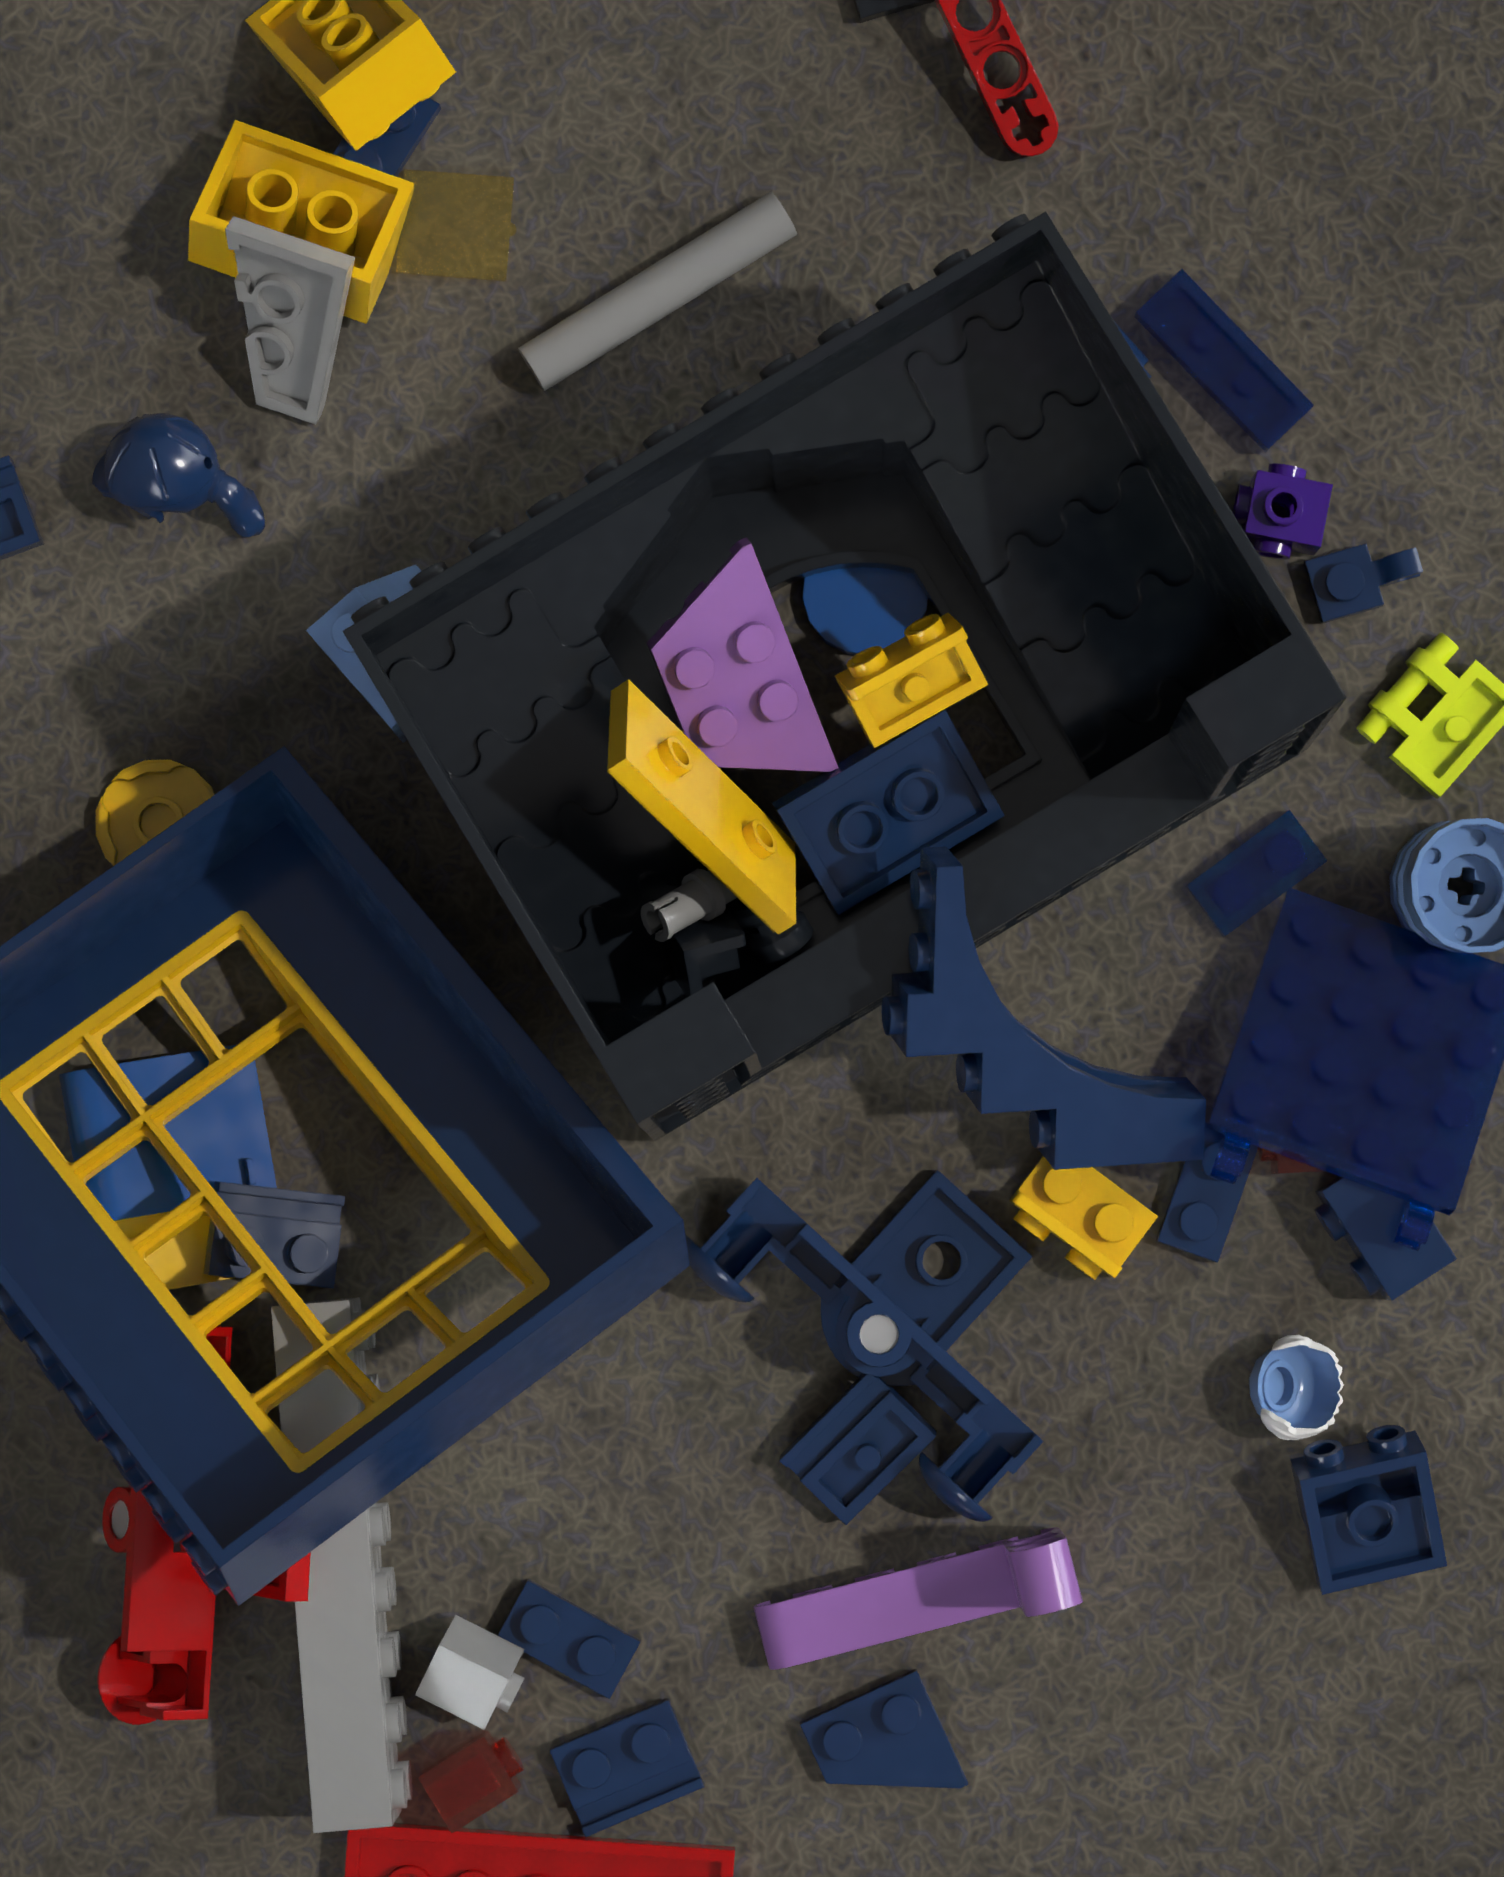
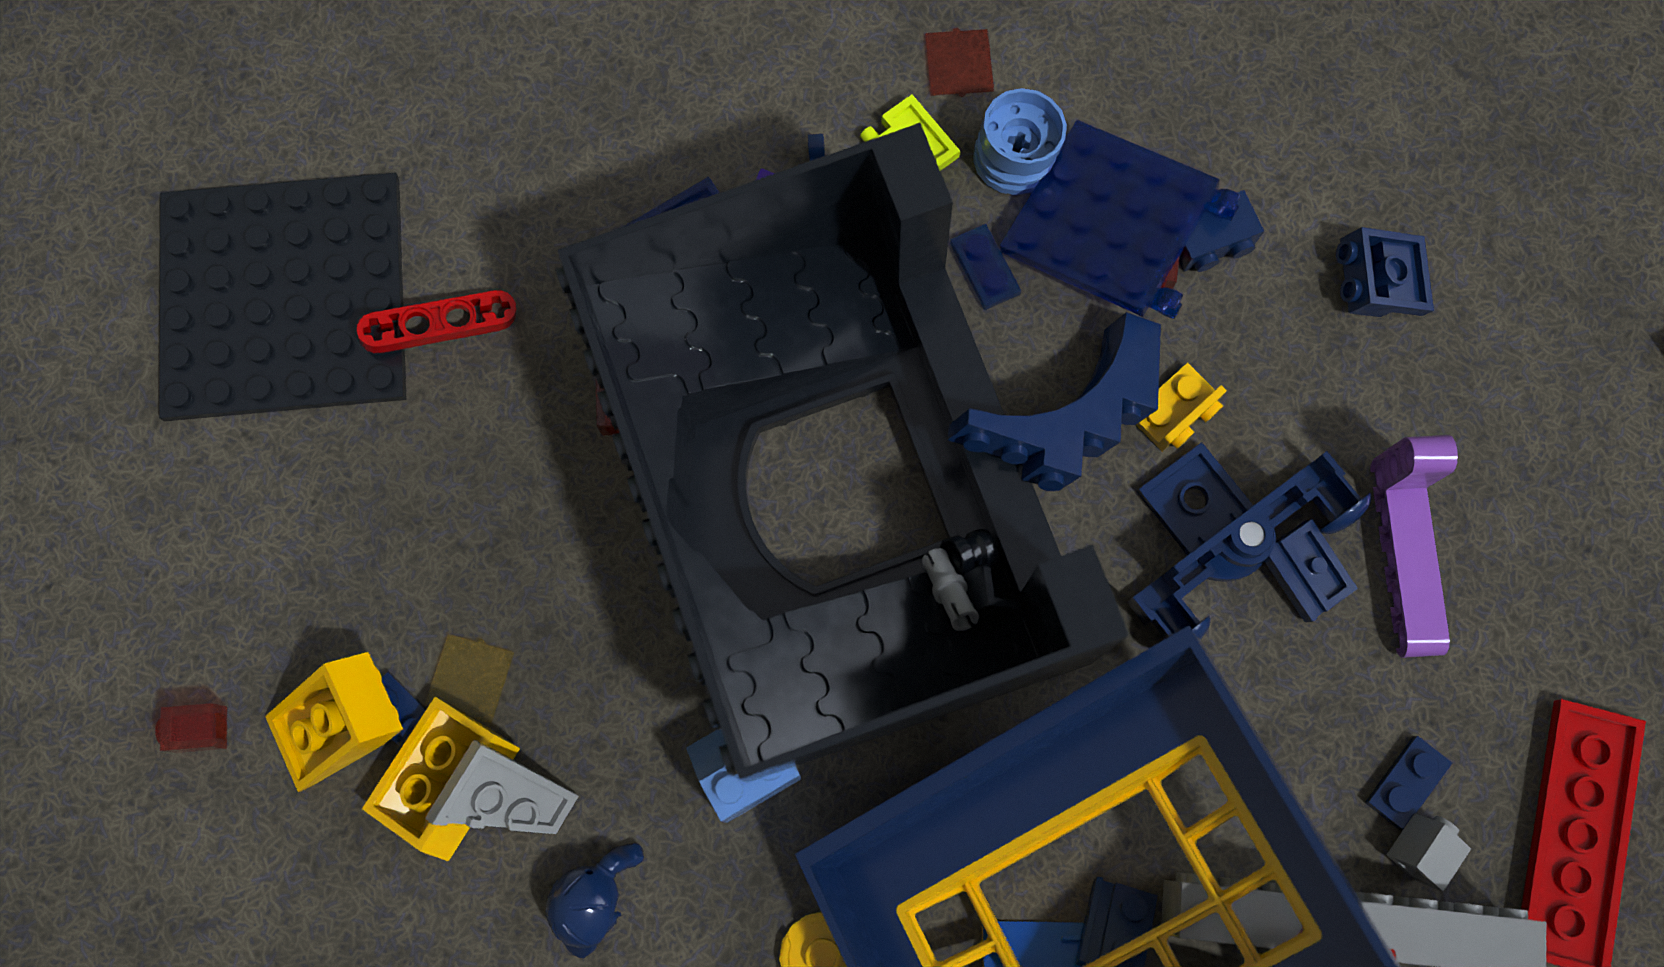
camera: 85 degrees left, 10 degrees down
(472, 1779) = (1500, 865): clear red brick -> none
(627, 1767) = (1496, 761): dark blue plate -> none
(658, 291) = (544, 556): light grey piece -> none
(702, 807) = (896, 572): yellow plate -> none
(738, 675) = (811, 535): medium lavender wing -> none
(862, 606) = (775, 467): blue tile -> none
(884, 804) = (912, 465): dark blue plate -> none
(885, 1739) = (1494, 592): dark blue wing -> none
(911, 677) = (834, 427): yellow bracket -> none
(1203, 1205) = (1185, 336): dark blue plate -> none
(1296, 1387) = (1306, 300): medium blue hair -> none

